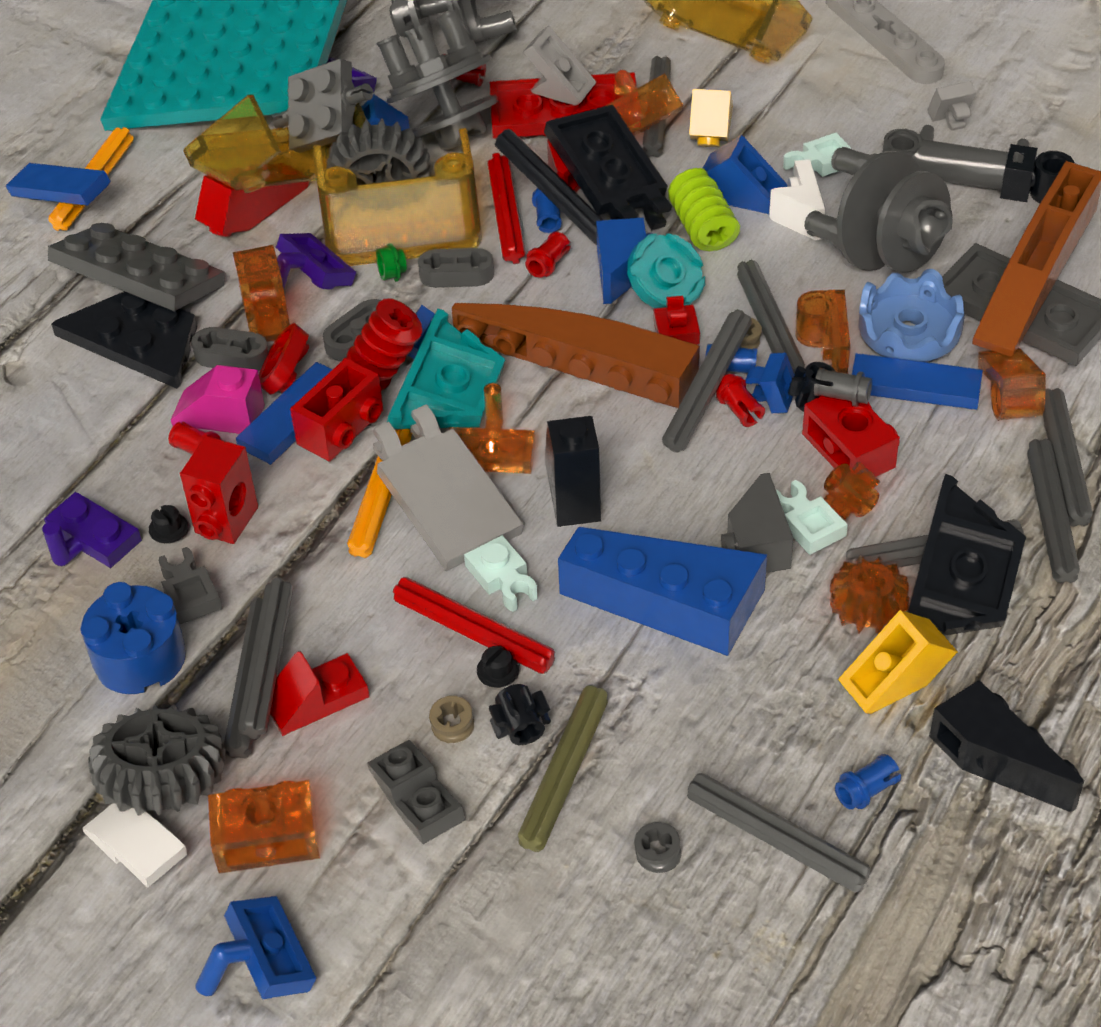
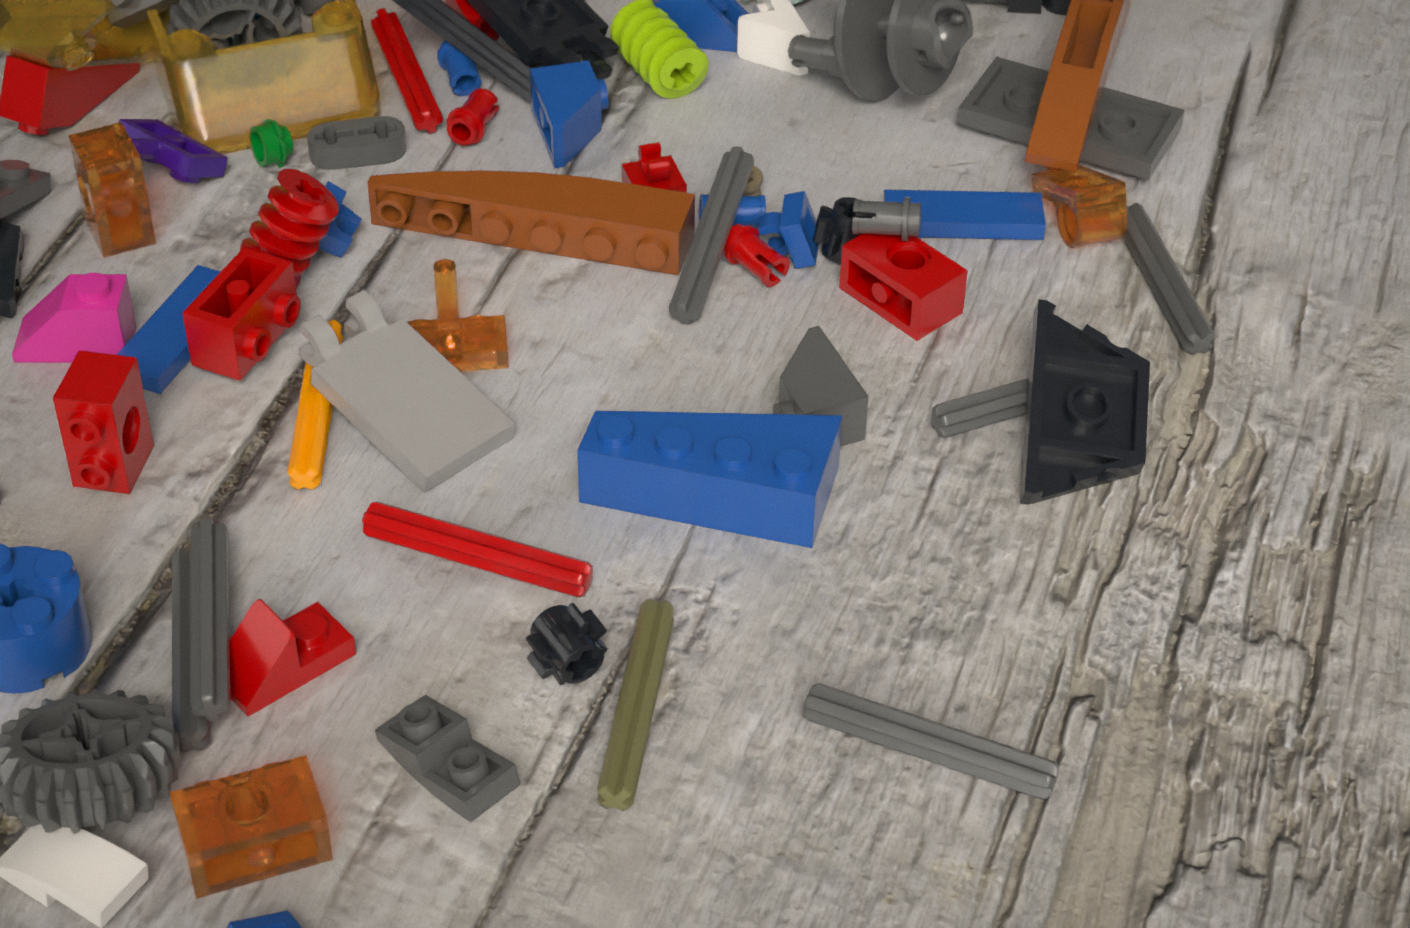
camera: 15 degrees left, 5 degrees down
(167, 525) = (35, 478): black piece -> none
(188, 437) = (41, 371): red pin -> none
(189, 588) = (92, 546): dark grey plate -> none
(229, 348) = (54, 258): dark grey beam -> none
(284, 354) = (153, 265): red plate -> none
(343, 332) = (231, 224): dark grey plate -> none
(447, 377) = (384, 257): teal wing -> none
(456, 706) = (475, 648): dark tan bush -> none
(497, 667) = (520, 594): black piece -> none
(500, 567) = (497, 478): light aqua plate -> none
(573, 470) = (570, 346): black slope -> none
(665, 268) = (625, 114): teal tile -> none
(667, 837) = (789, 766): dark grey bush -> none
(767, 312) = (775, 169): dark grey axle -> none
(811, 522) = (883, 377): light aqua plate -> none
(824, 325) = (839, 160): clear orange plate -> none
(851, 490) = (921, 338): clear orange gear -> none
(858, 787) = (1017, 675): blue pin -> none
(868, 593) = (974, 453): clear orange gear -> none
(897, 662) = (1028, 525): yellow slope -> none
(923, 302) = (941, 149): medium blue plate -> none
(998, 746) = (1182, 606): black slope -> none
(1053, 511) = (1166, 339): dark grey axle -> none

